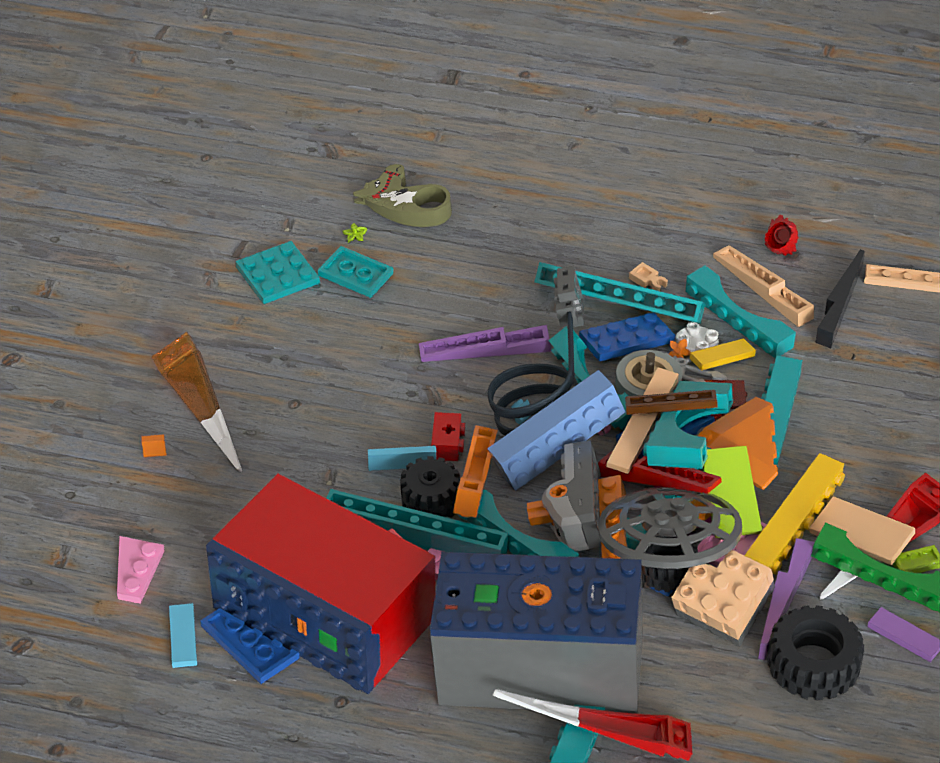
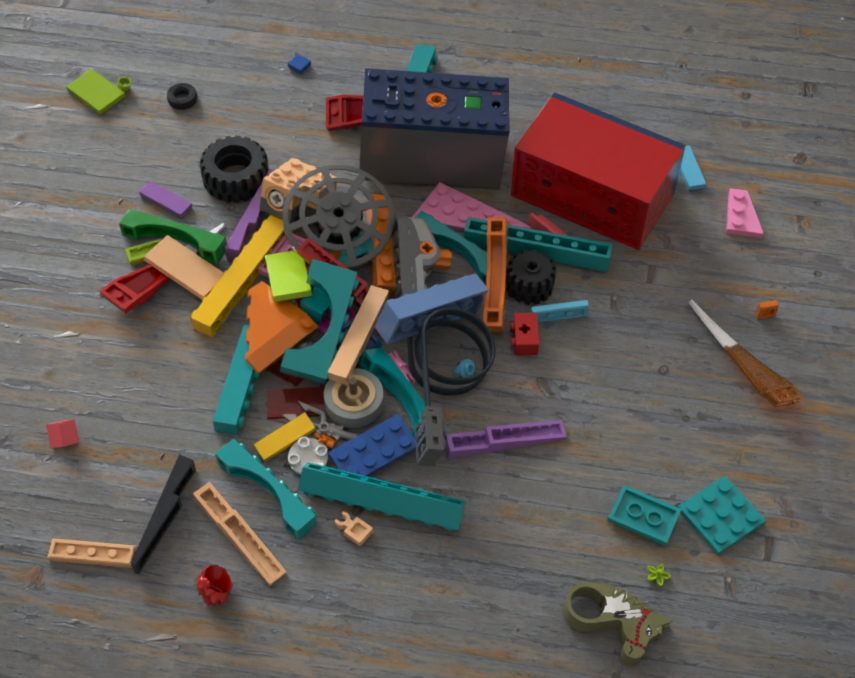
camera: 175 degrees right, 10 degrees up
(671, 402) = (335, 333): reddish brown tile -> none

